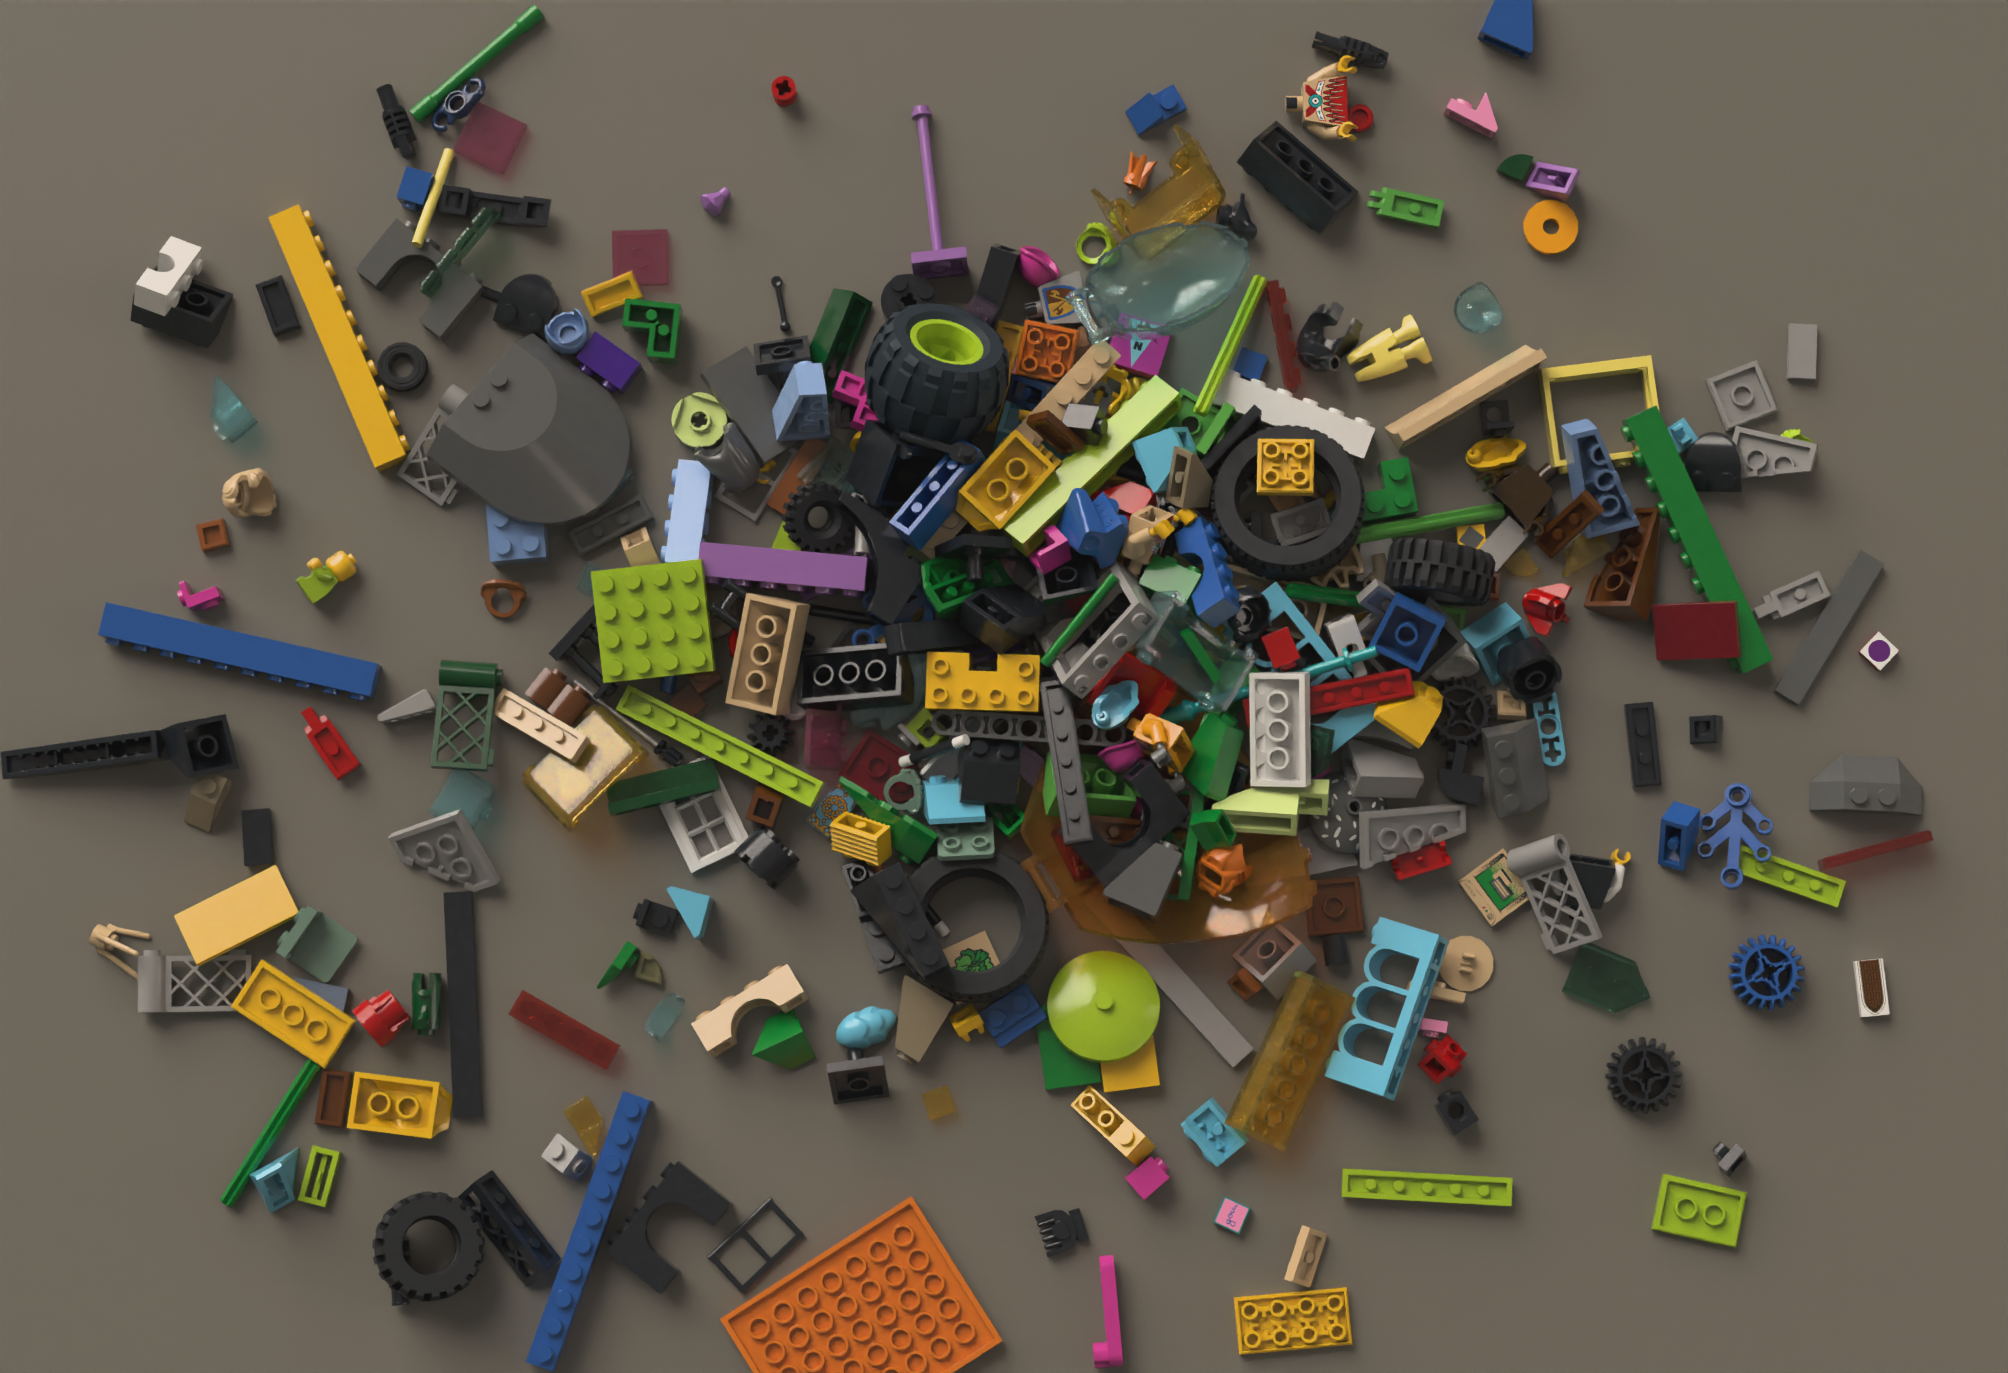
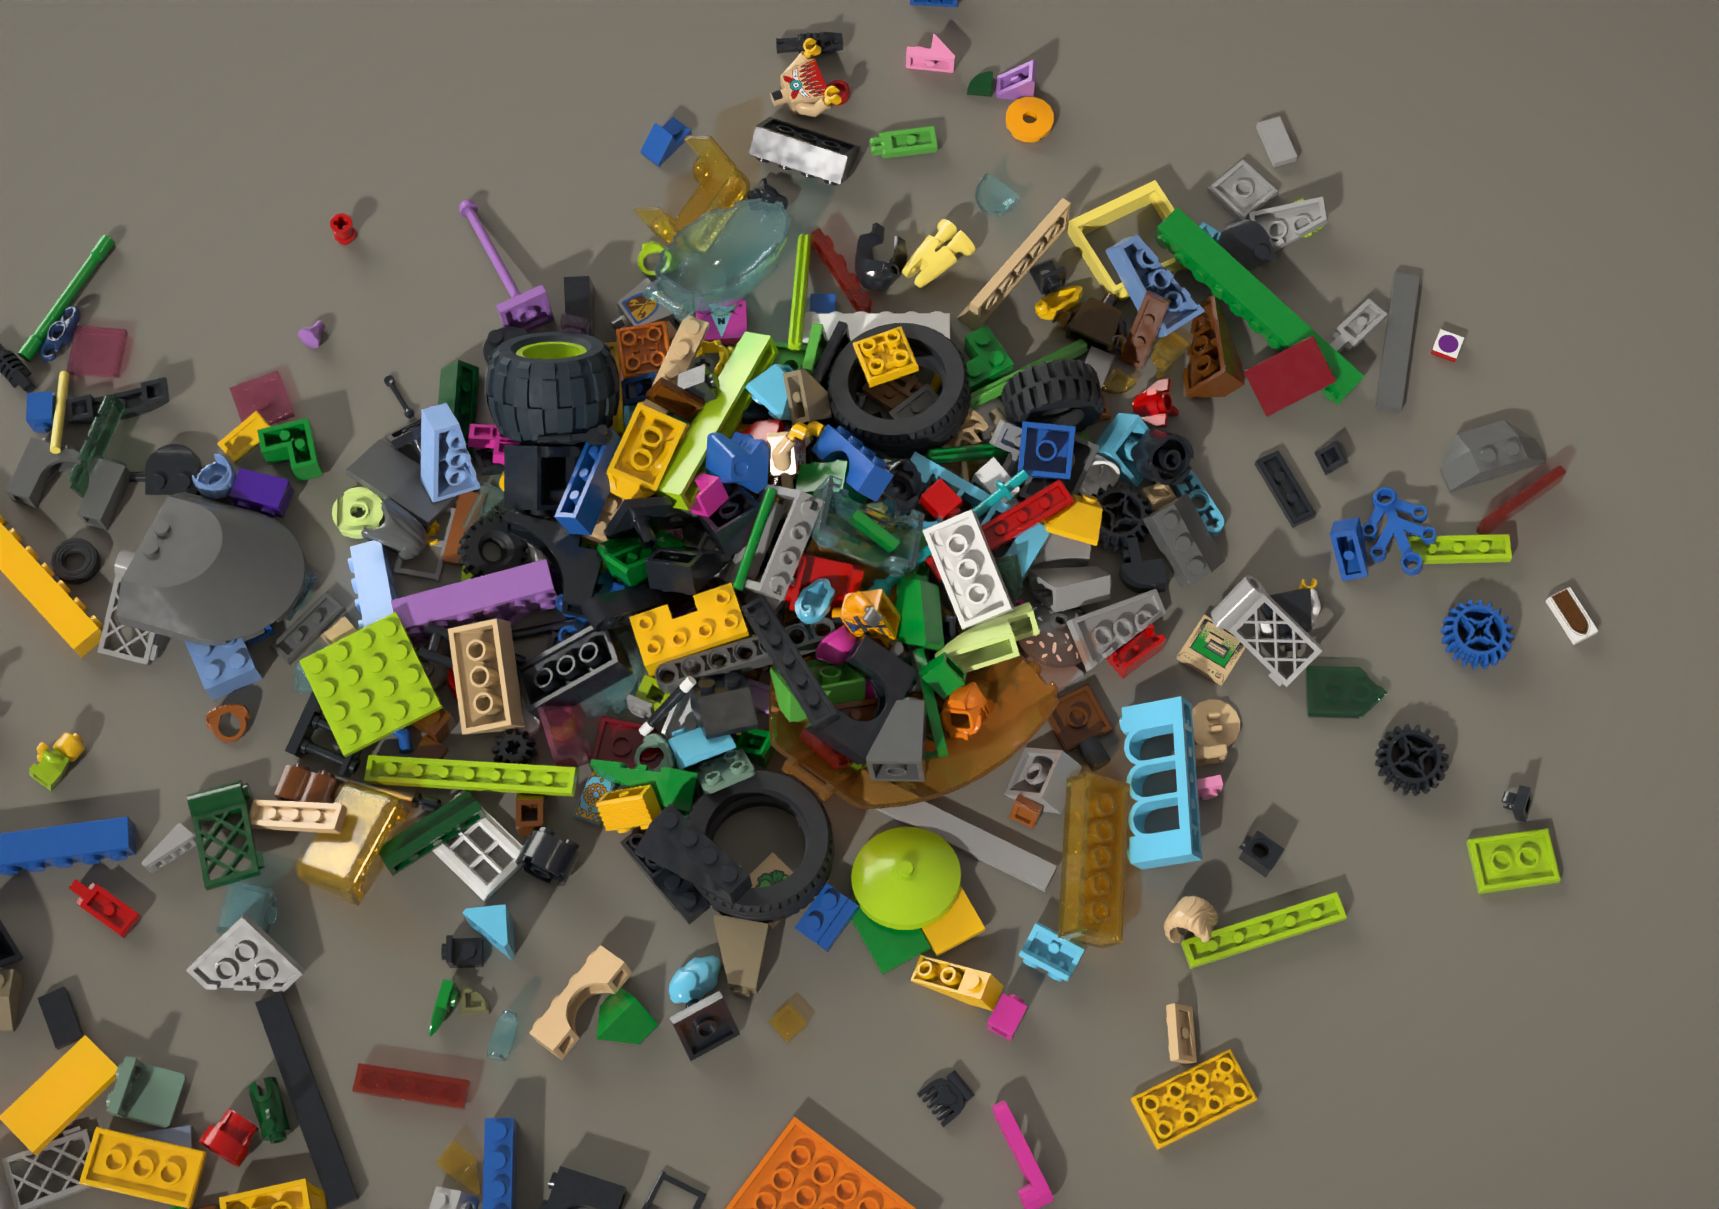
camera: 20 degrees left, 15 degrees down
(966, 1020) = (785, 937): yellow tile -> none
(1036, 266) = (609, 288): dark pink helmet -> none
(1138, 172) = (668, 194): orange piece -> none
(1231, 1215) = (1097, 1023): bright pink tile -> none
(1362, 1151) = (1192, 914): none -> tan hair
(1442, 1059) = (1229, 809): red brick -> none

